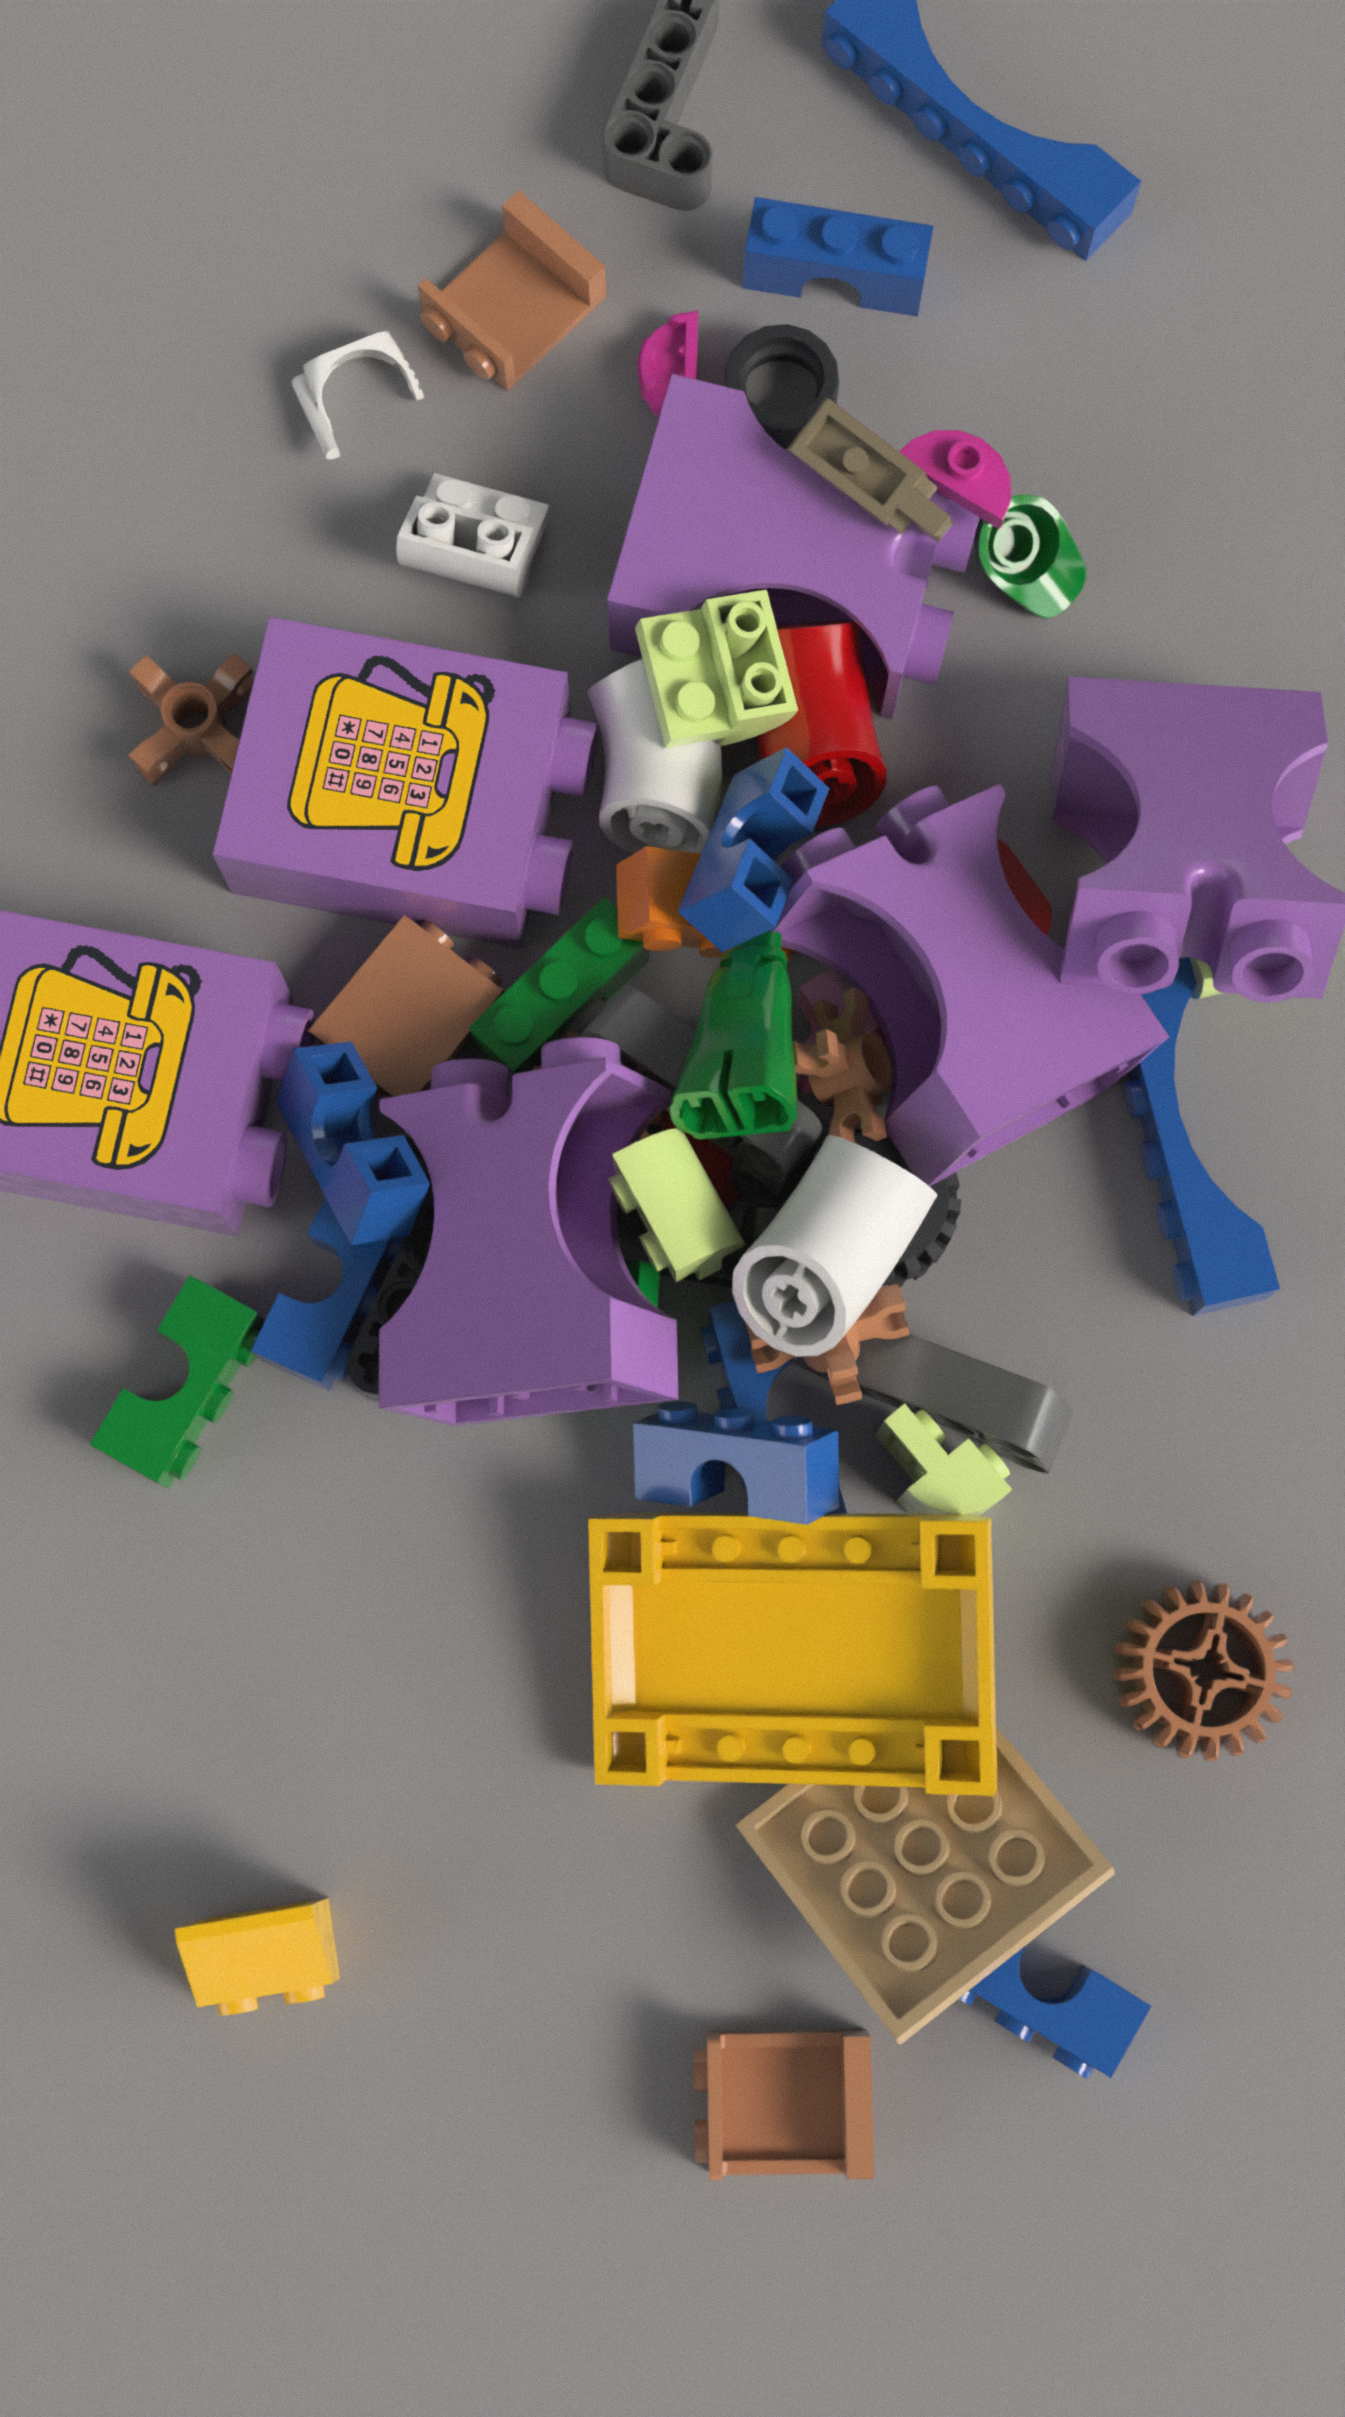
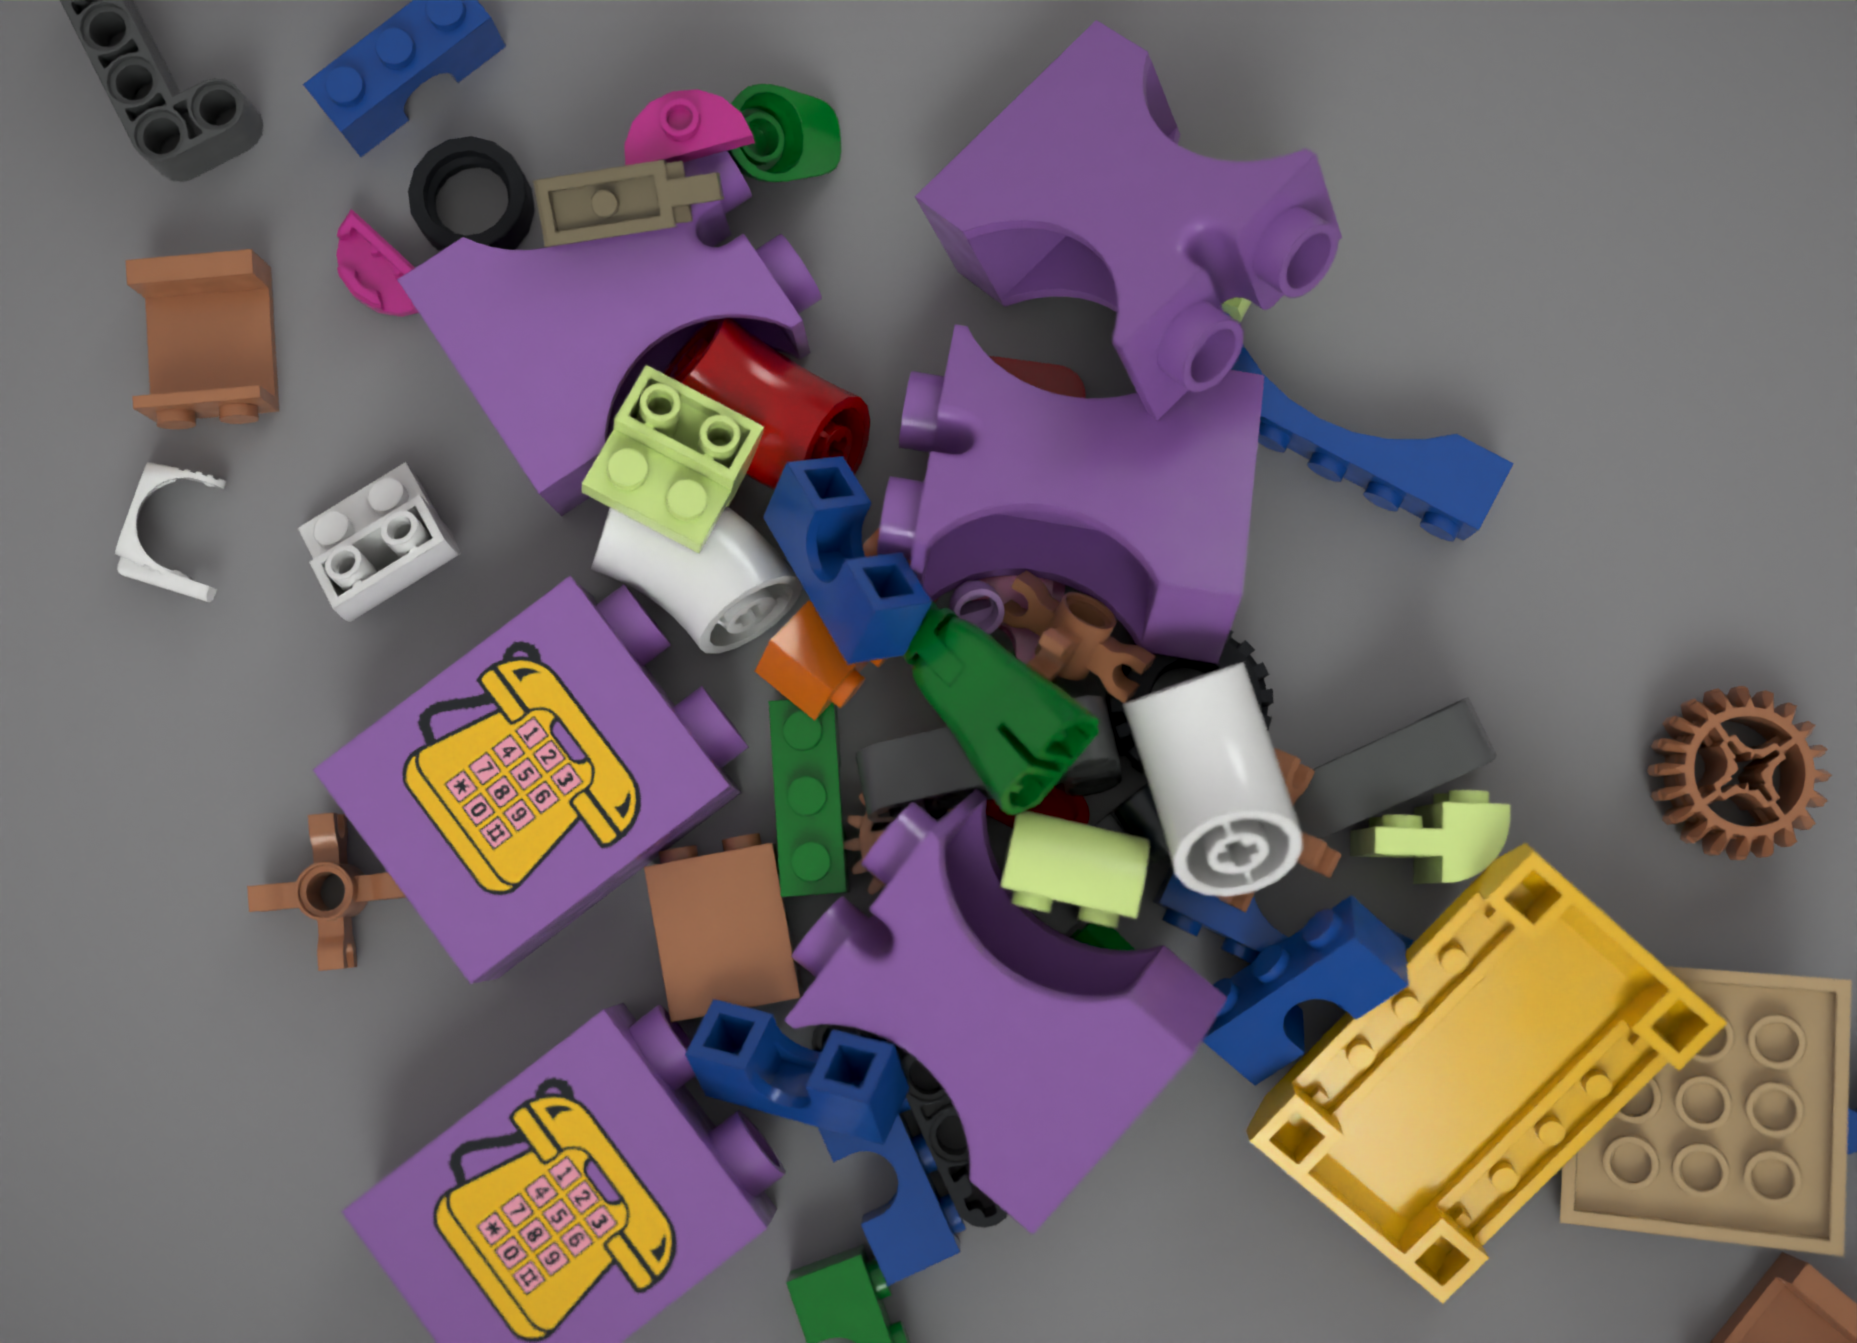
camera: 45 degrees left, 5 degrees up
(804, 992) = (983, 613): none -> lavender hinge

